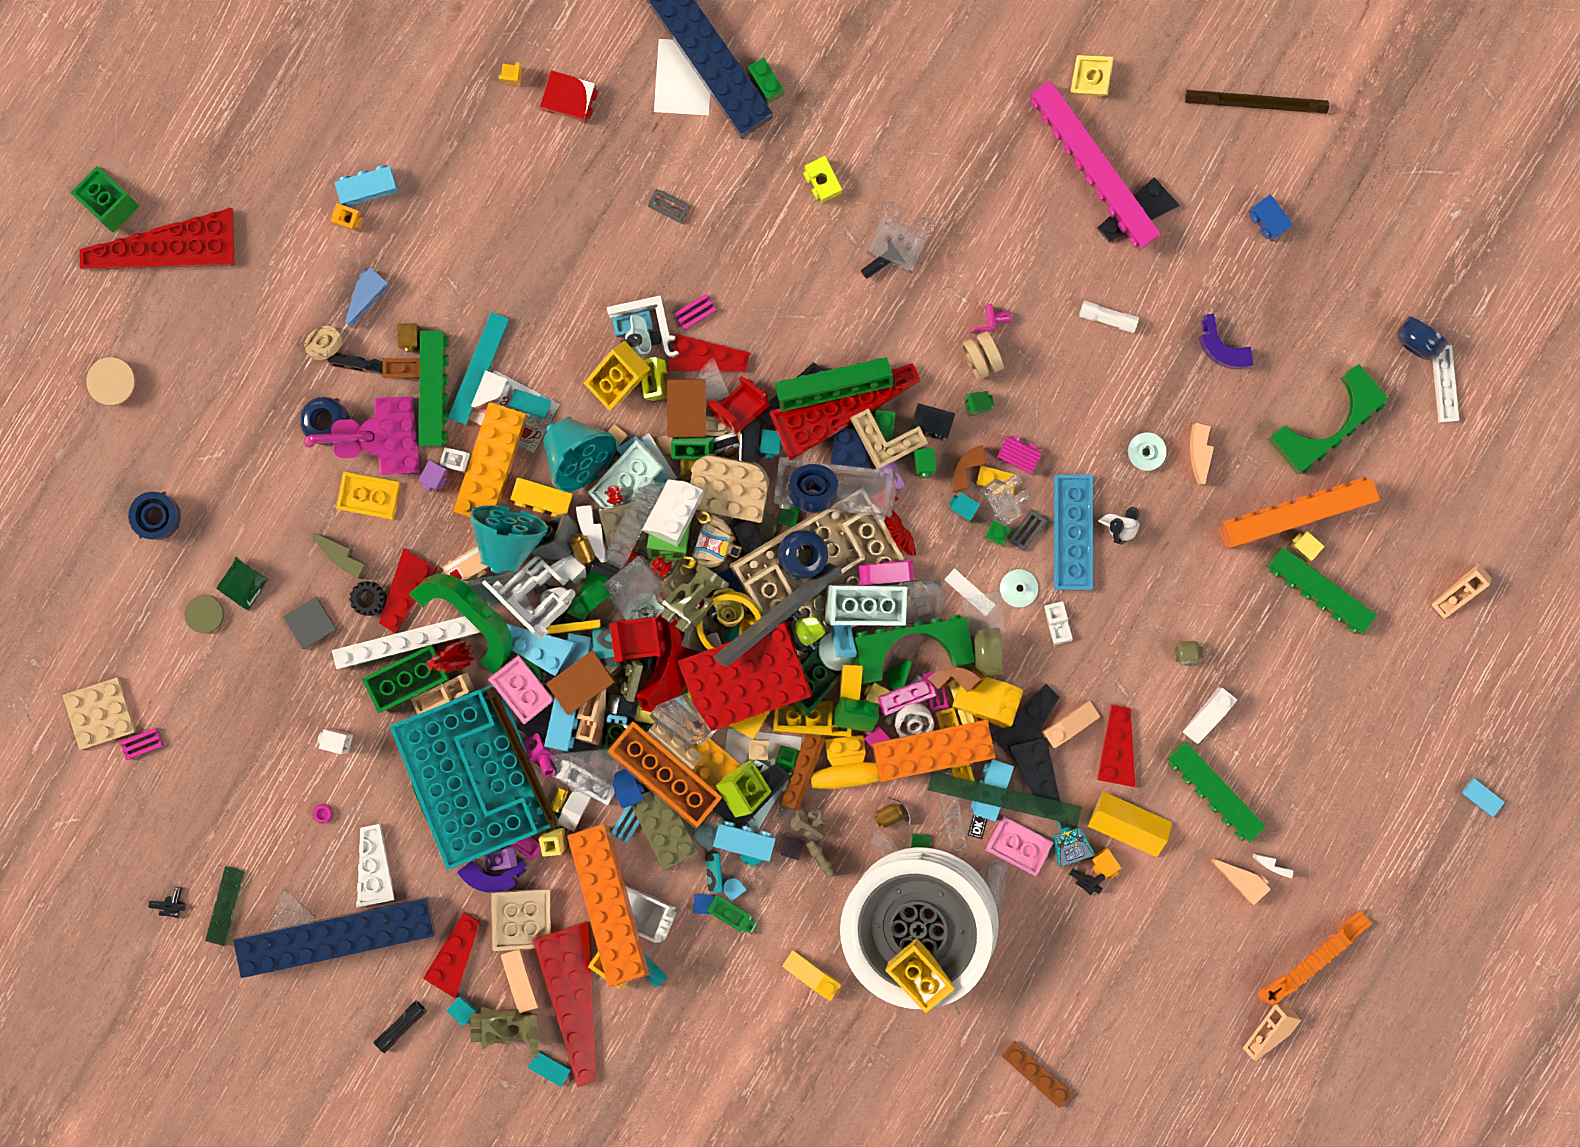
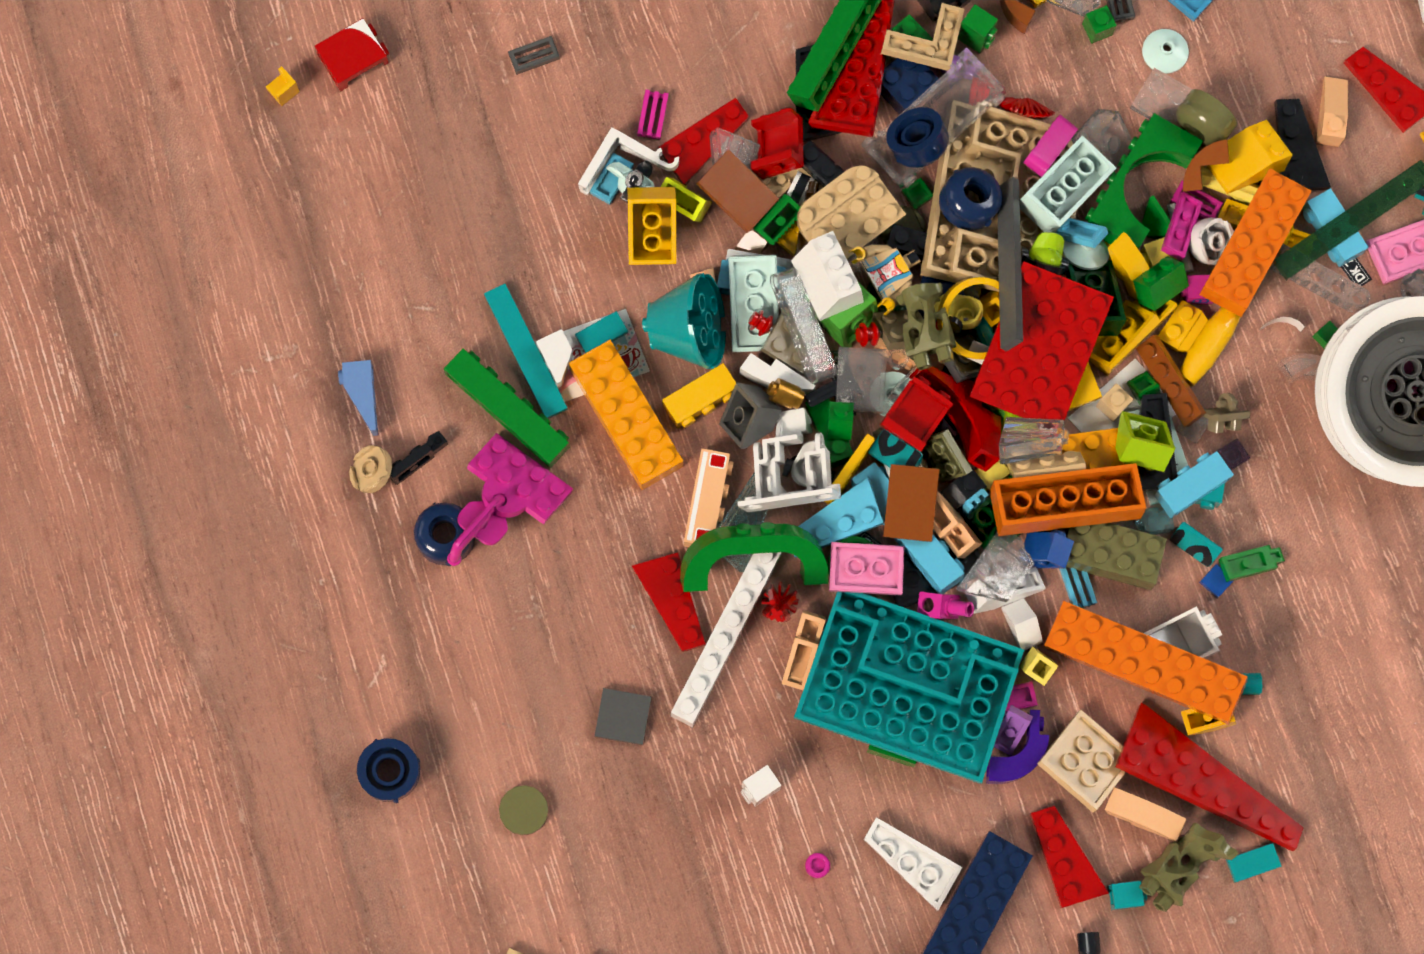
camera: 50 degrees left, 10 degrees down
(104, 199) = (44, 554): green slope -> none
(110, 381) = (221, 699): tan piece -> none
(192, 242) = (157, 516): red wing -> none
(242, 584) = (527, 746): dark green slope -> none
(341, 213) = (266, 343): light orange brick -> none
(341, 556) = (586, 630): olive slope -> none
(356, 598) = (640, 628): black tyre -> none
(366, 186) = (261, 303): medium azure brick -> none
(368, 495) = (551, 556): yellow tile -> none
(401, 367) = (461, 419): dark orange plate -> none
(404, 680) = (760, 668): green brick -> none
(408, 336) = (437, 387): pearl gold brick -> none
(433, 476) = (589, 478): medium lavender brick -> none
(455, 460) = (593, 444): white slope -> none
(505, 536) = (715, 451): teal cone -> none
(522, 758) = (933, 622): dark brown piece -> none
(559, 799) = (1001, 628): yellow pin -> none
(733, 888) = (1227, 540): medium azure tile -> none
(769, 444) = (837, 149): teal brick -> none
(812, 975) = (1372, 538): yellow slope -> none
(824, 863) = (1266, 433): dark tan plate -> none
(888, 815) = (1278, 340): pearl gold brick -> none
(961, 584) = (1117, 97): white sticker -> none
(963, 506) = (1048, 32): teal brick -> none
(1036, 766) = (1346, 171): black wing -> none
(1058, 623) = (1228, 44): white slope -> none

